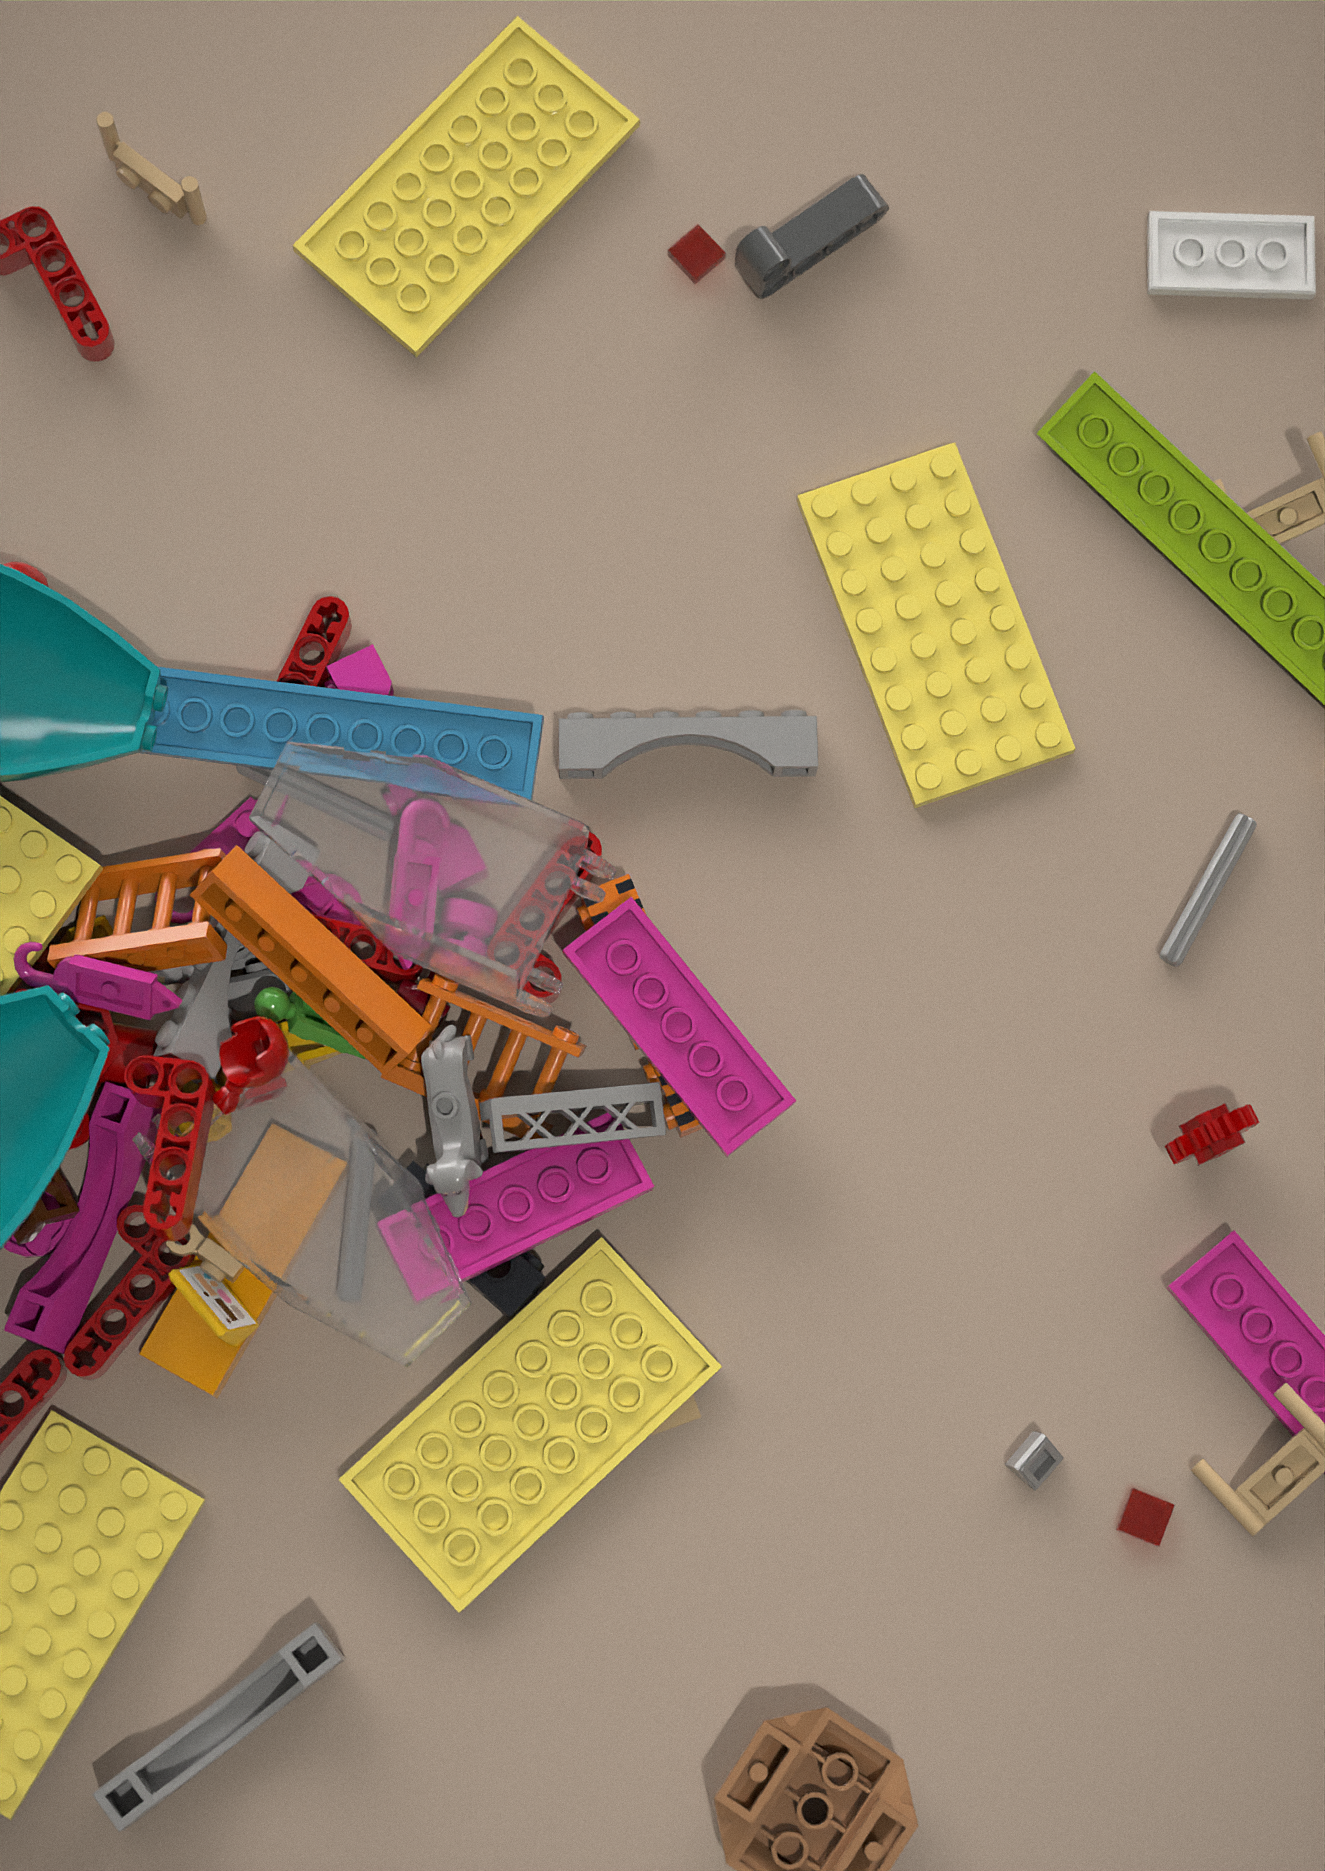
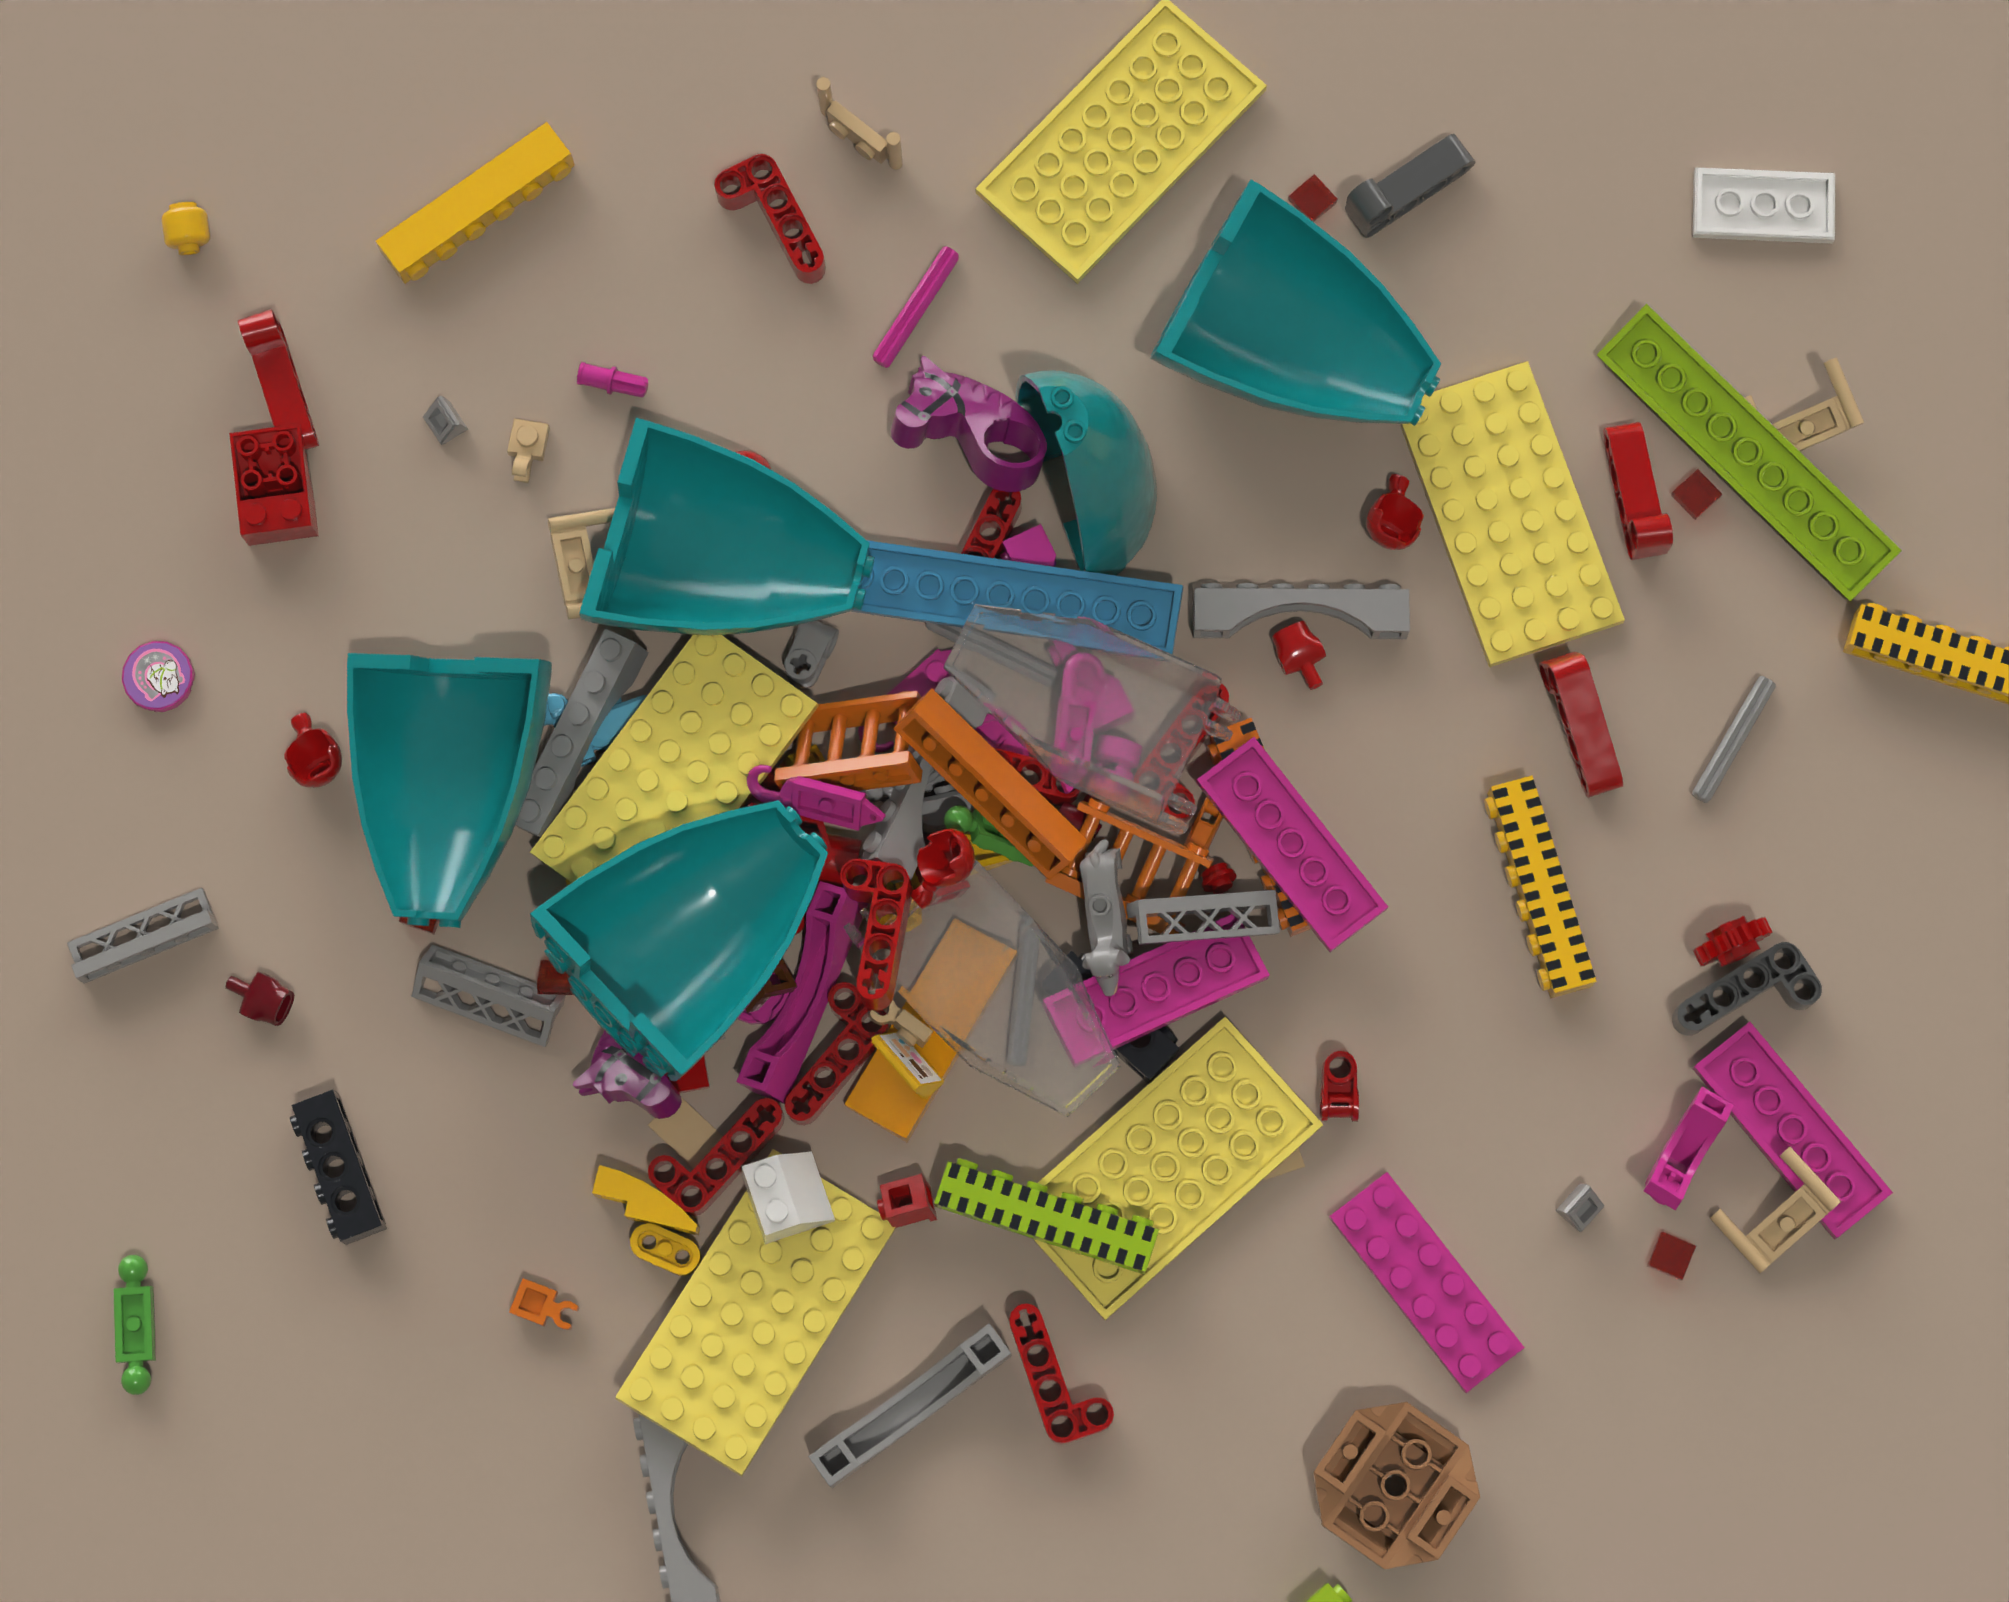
camera: 10 degrees right, 0 degrees up
(66, 1469) = (787, 1195): none -> white slope
(96, 796) = (810, 647): none -> light grey piece
(207, 1461) = (904, 1191): none -> red brick
(222, 387) = (915, 307): none -> dark pink axle
(293, 515) = (976, 415): none -> magenta animal
(385, 1489) = (1046, 1217): none -> lime brick
(395, 1679) = (1051, 1372): none -> red beam
(442, 571) = (1104, 463): none -> teal panel
(571, 1012) = (1201, 831): none -> orange bar
(591, 1069) = (1218, 878): none -> red plate
(677, 398) = (1296, 323): none -> teal panel
(686, 792) = (1299, 651): none -> red piece
(741, 1324) = (1339, 1090): none -> red piece
(797, 631) = (1394, 518): none -> red hair
(850, 1557) = (1426, 1282): none -> dark pink plate
(980, 1072) = (1540, 886): none -> yellow brick
(1028, 872) = (1583, 722): none -> red beam
(1096, 636) = (1644, 526): none -> red beam
(1158, 597) = (1696, 494): none -> clear red tile
(1161, 1386) = (1687, 1148): none -> dark pink arch
(1222, 1196) = (1740, 993): none -> dark grey beam

